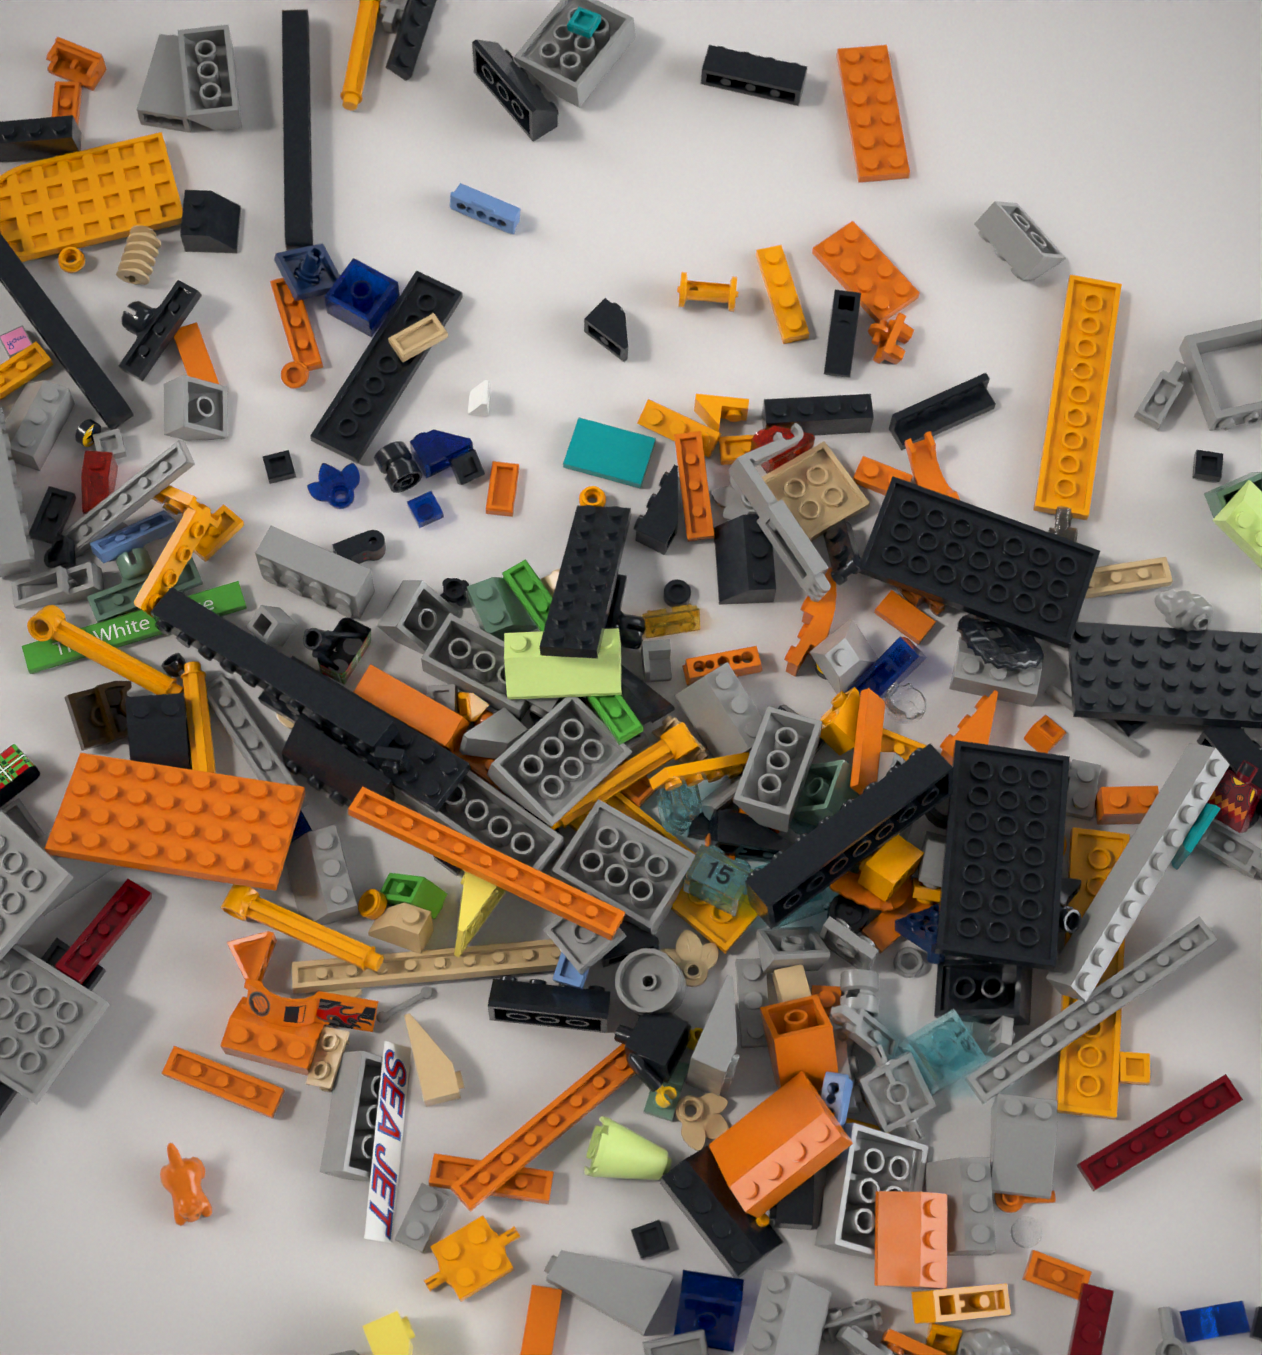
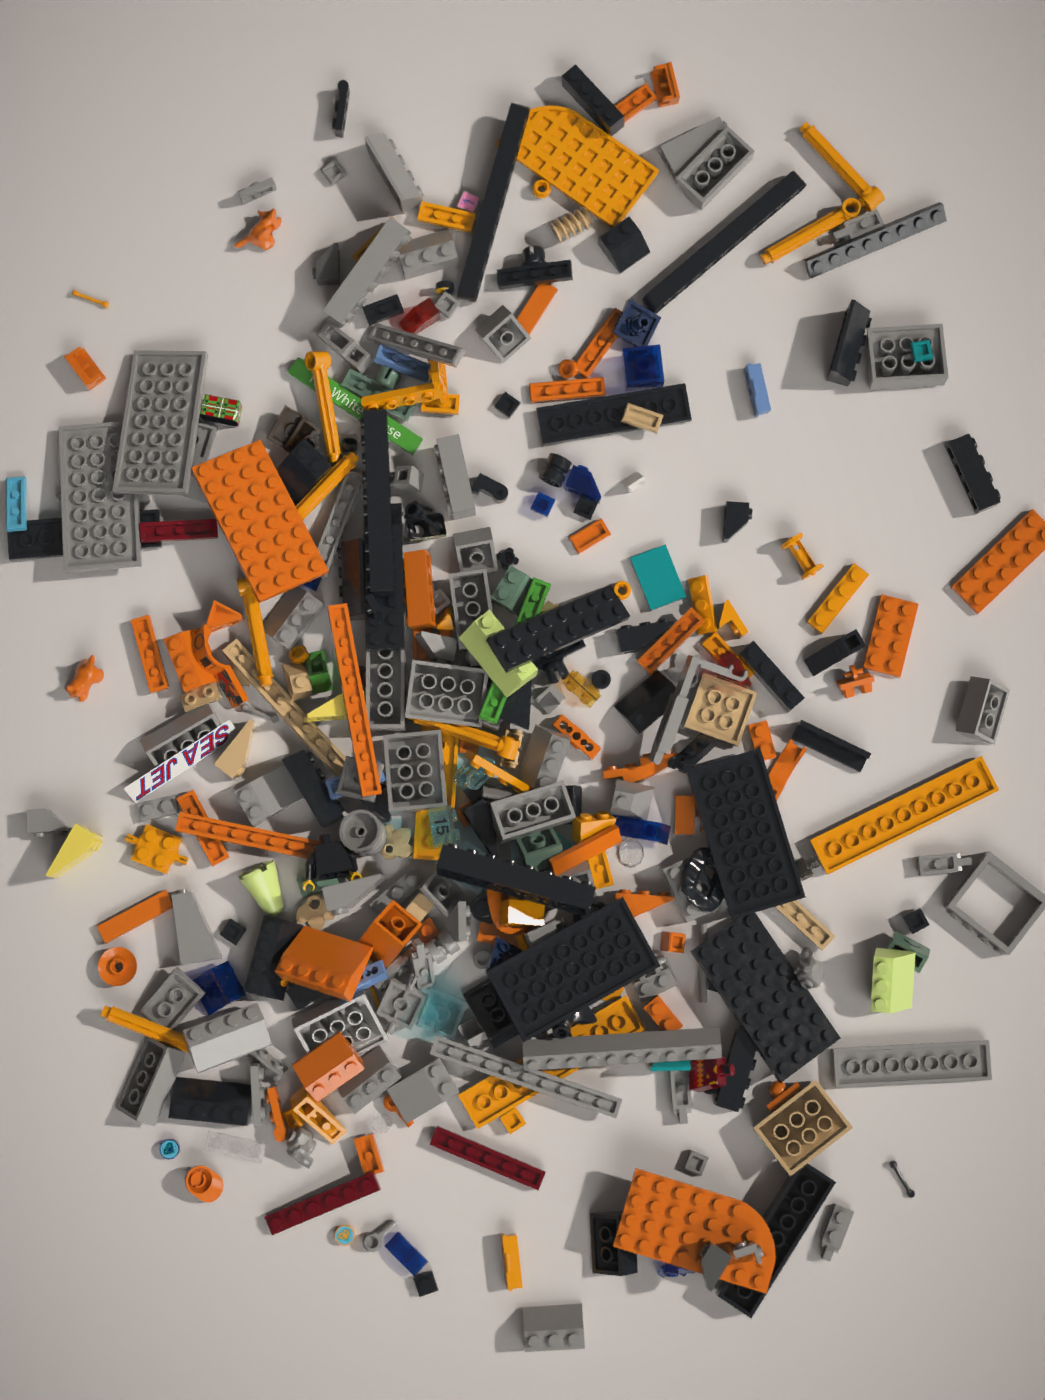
camera: 55 degrees right, 15 degrees up
(61, 553) = (364, 333): black tile -> none
(316, 394) = (567, 390): none -> orange tile
(334, 483) = (522, 442): clear blue plate -> none
(514, 1068) = (268, 795): none -> light grey slope

